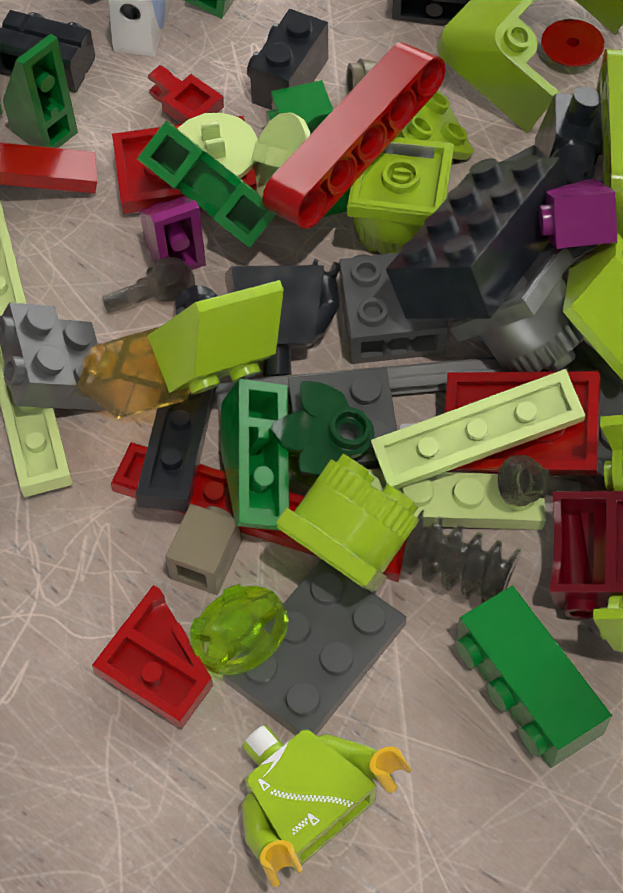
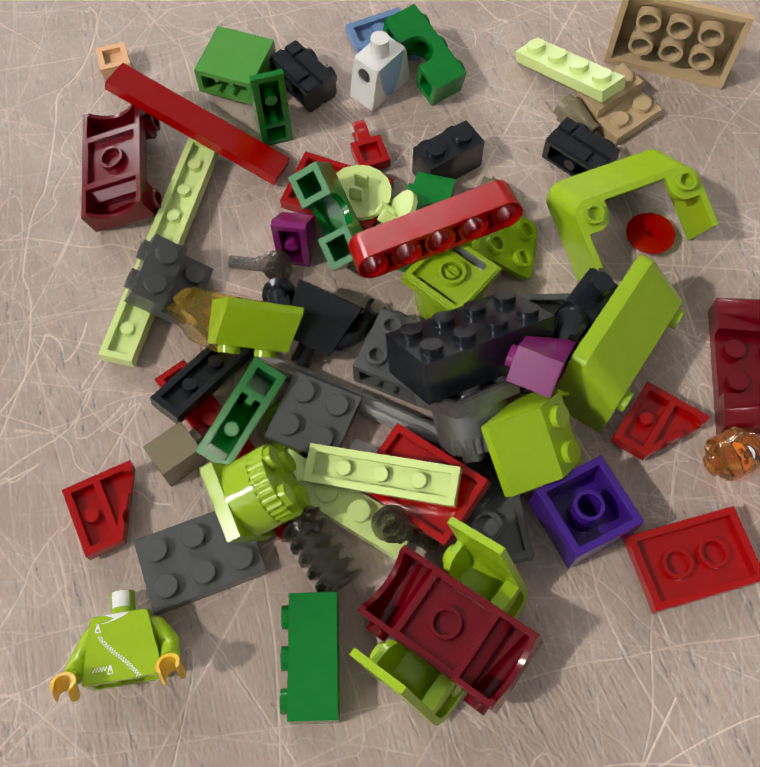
camera: 30 degrees right, 5 degrees up
(237, 625) = (157, 516): clear neon green wheel -> none
(317, 428) = (284, 415): dark green plate -> none

